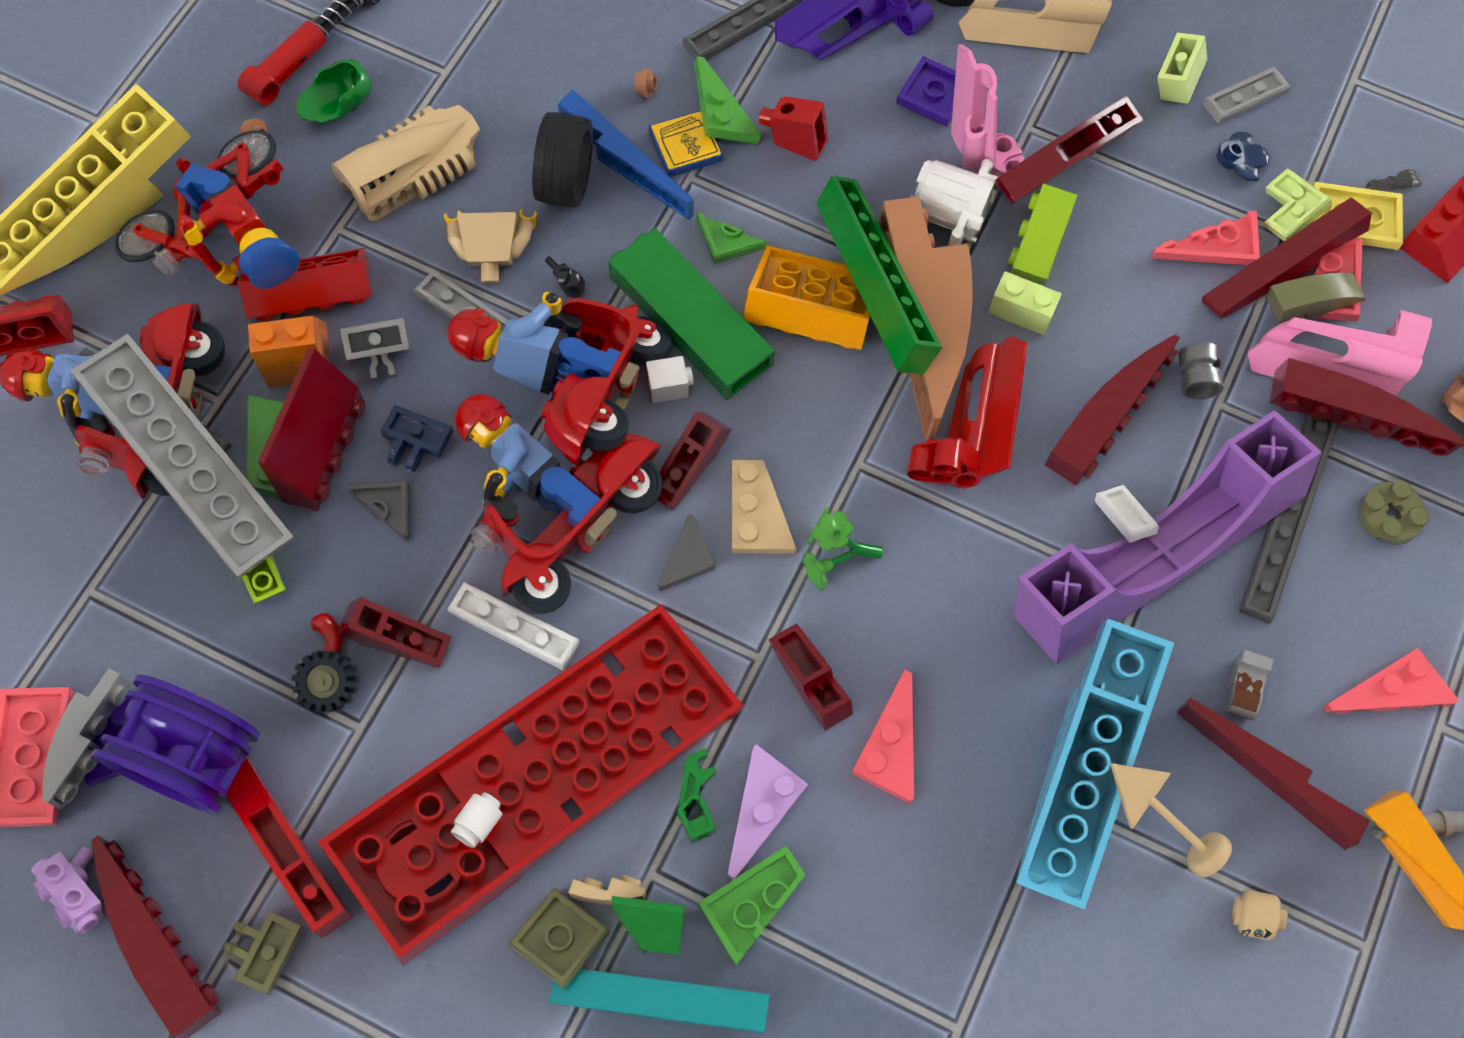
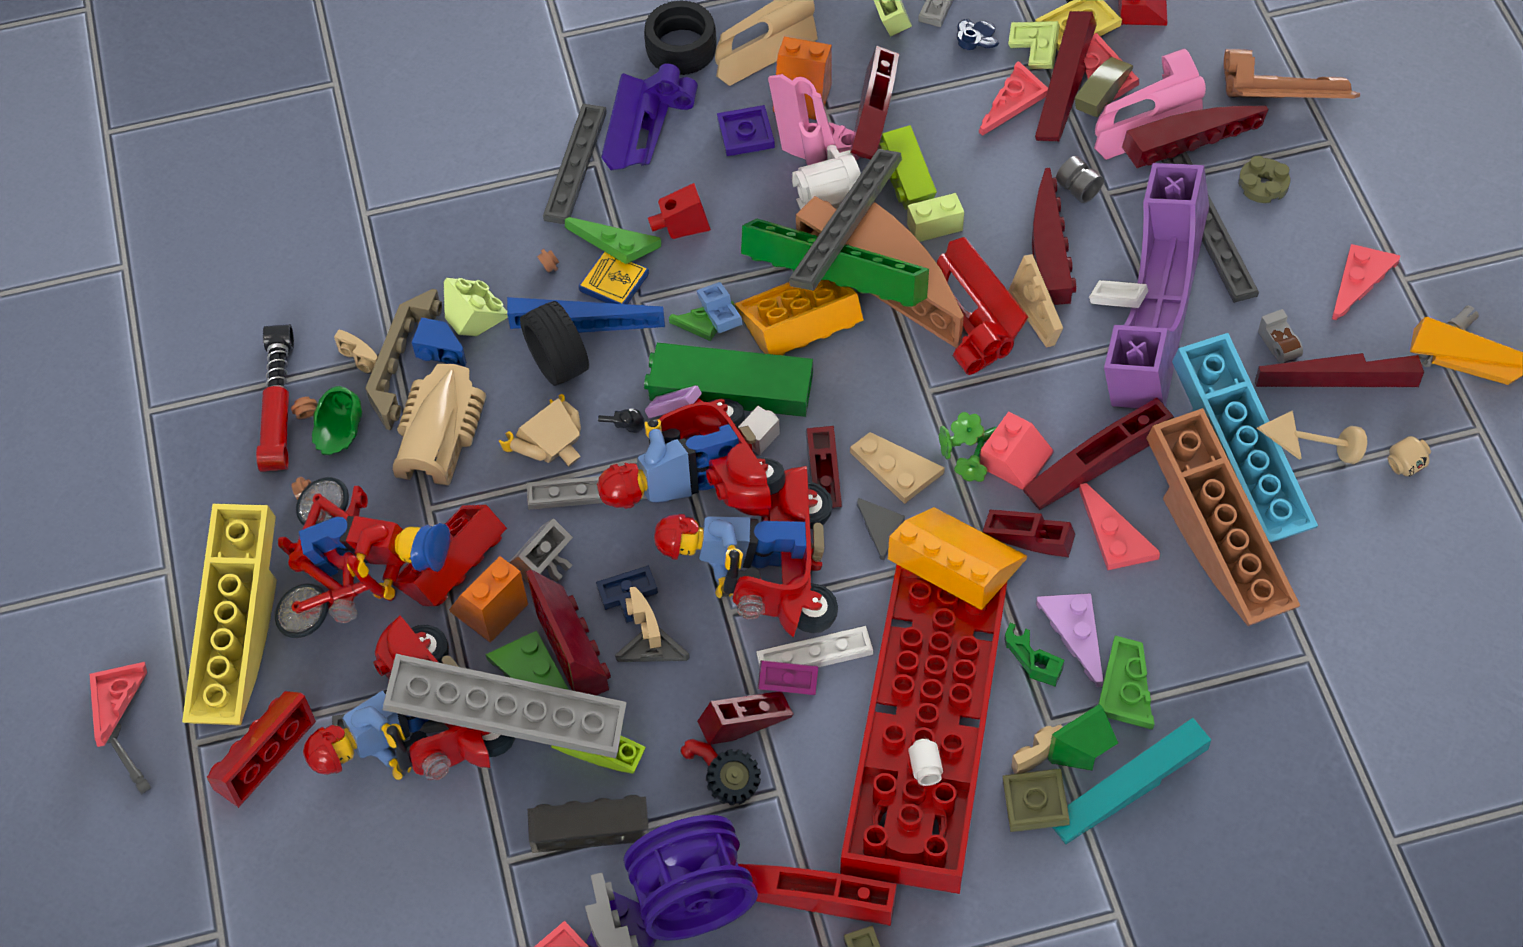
camera: 35 degrees left, 10 degrees down
(174, 618) = (587, 824): none -> clear smoke brick
(323, 59) = (304, 407): none -> nougat plate
(397, 461) = (643, 615): none -> tan slope
(413, 51) = (354, 347): none -> tan slope
(461, 629) = (787, 677): none -> magenta plate
(483, 85) = (437, 343): none -> blue slope
(502, 46) = (385, 404): none -> dark tan slope
(540, 74) = (471, 306): none -> yellowish green slope
(616, 293) = (671, 401): none -> lavender tile
(718, 641) = (954, 556): none -> light orange slope
(745, 238) = (719, 307): none -> medium blue slope
(875, 588) = (1015, 451): none -> coral slope
(918, 239) = (845, 220): none -> dark grey tile
(952, 656) = (1097, 454): none -> dark red slope
(991, 824) = (1219, 518): none -> nougat slope
(1031, 77) = (809, 61): none -> orange slope
(1035, 458) = (1034, 299): none -> tan wing

